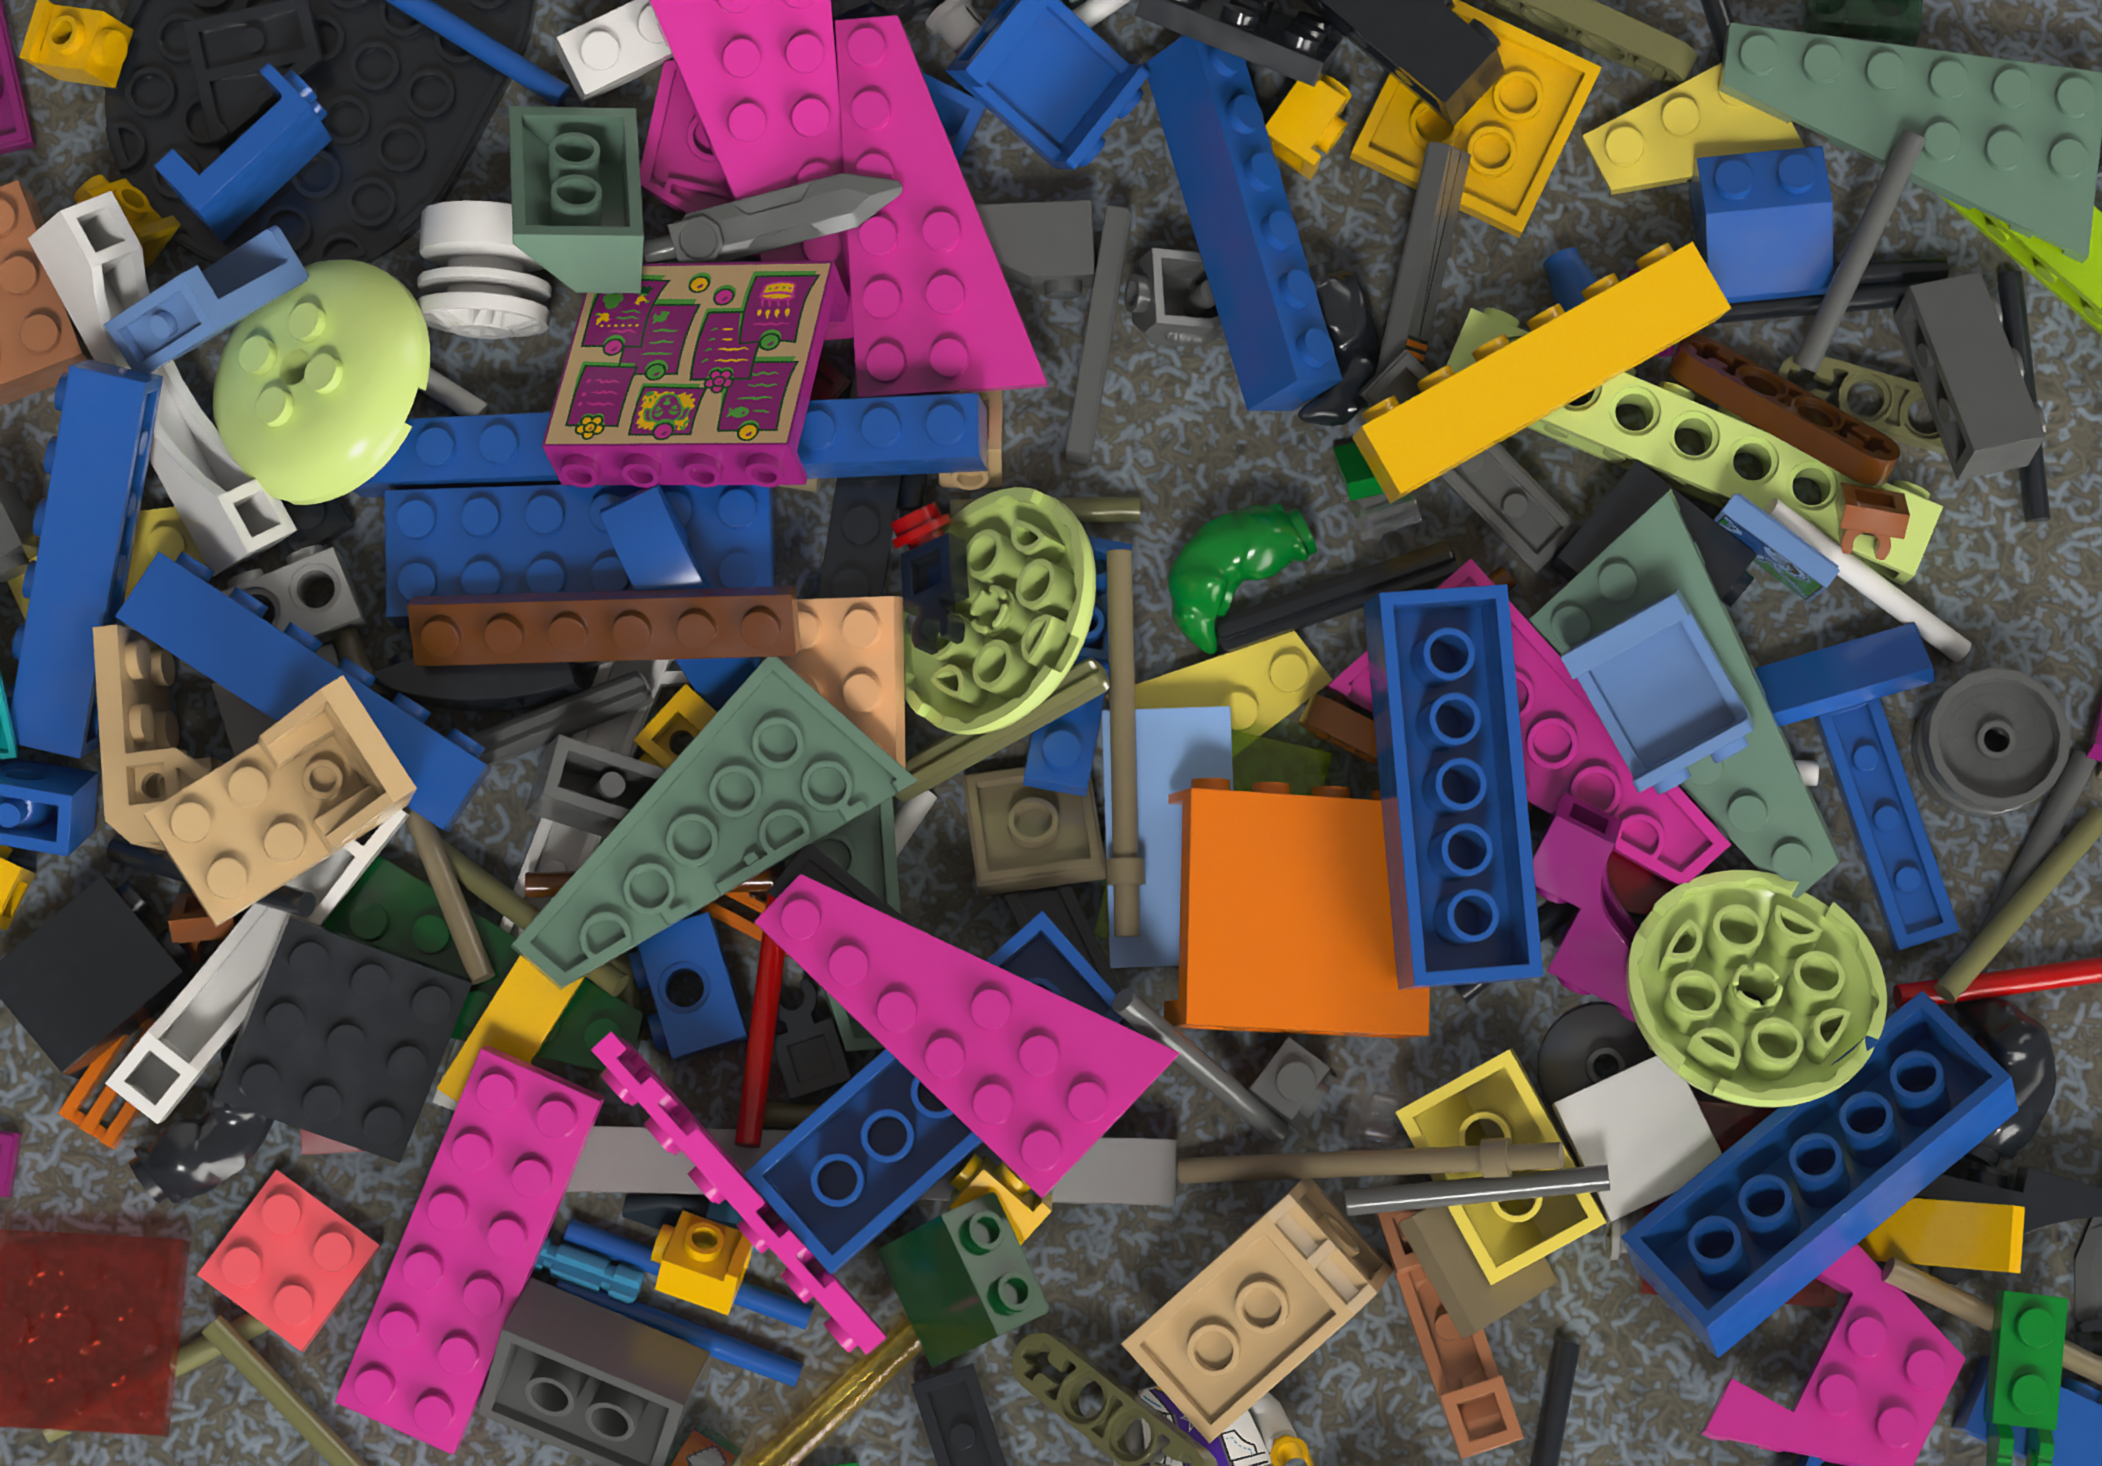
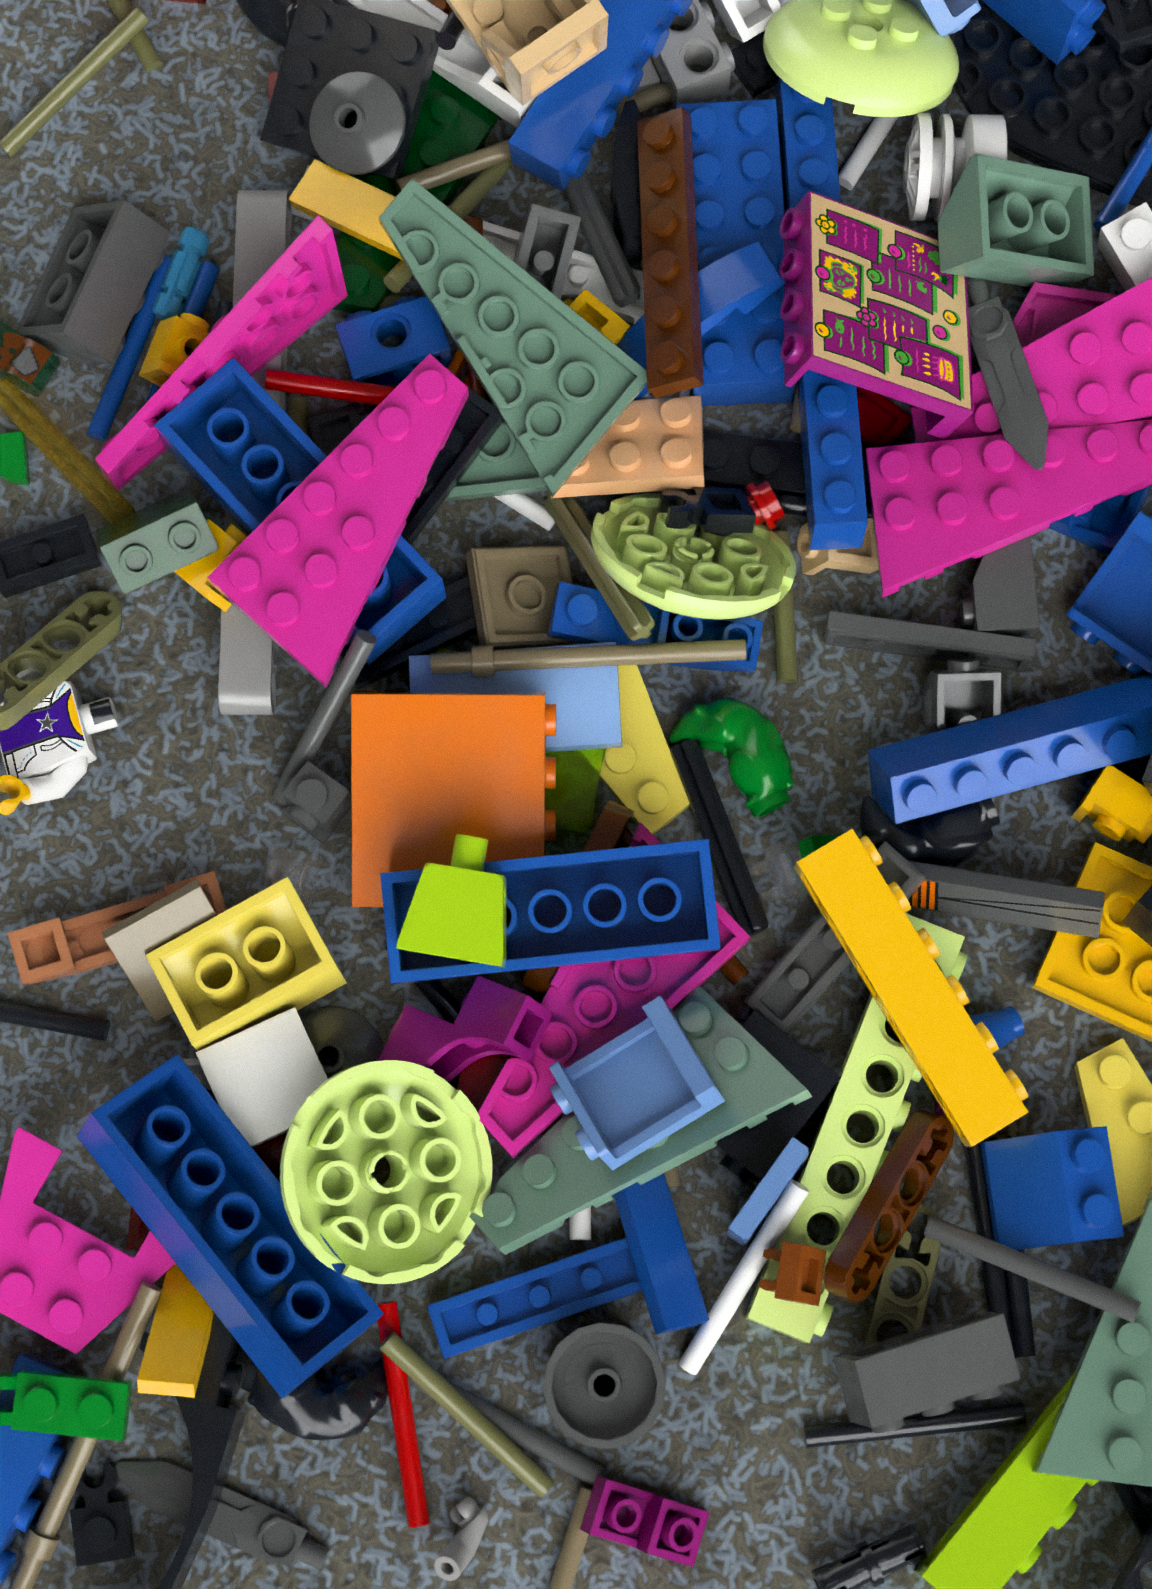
camera: 90 degrees right, 5 degrees down
(289, 1260) = (189, 71): coral plate -> none
(384, 1000) = (378, 125): none -> dark grey dish
(469, 1248) = (191, 183): dark pink plate -> none
(1259, 1309) = (135, 773): tan bracket -> none
(1468, 887) = (459, 908): none -> lime torso
(1477, 1190) = (220, 941): dark grey bar -> none
(1492, 1158) = (244, 946): dark tan bar -> none

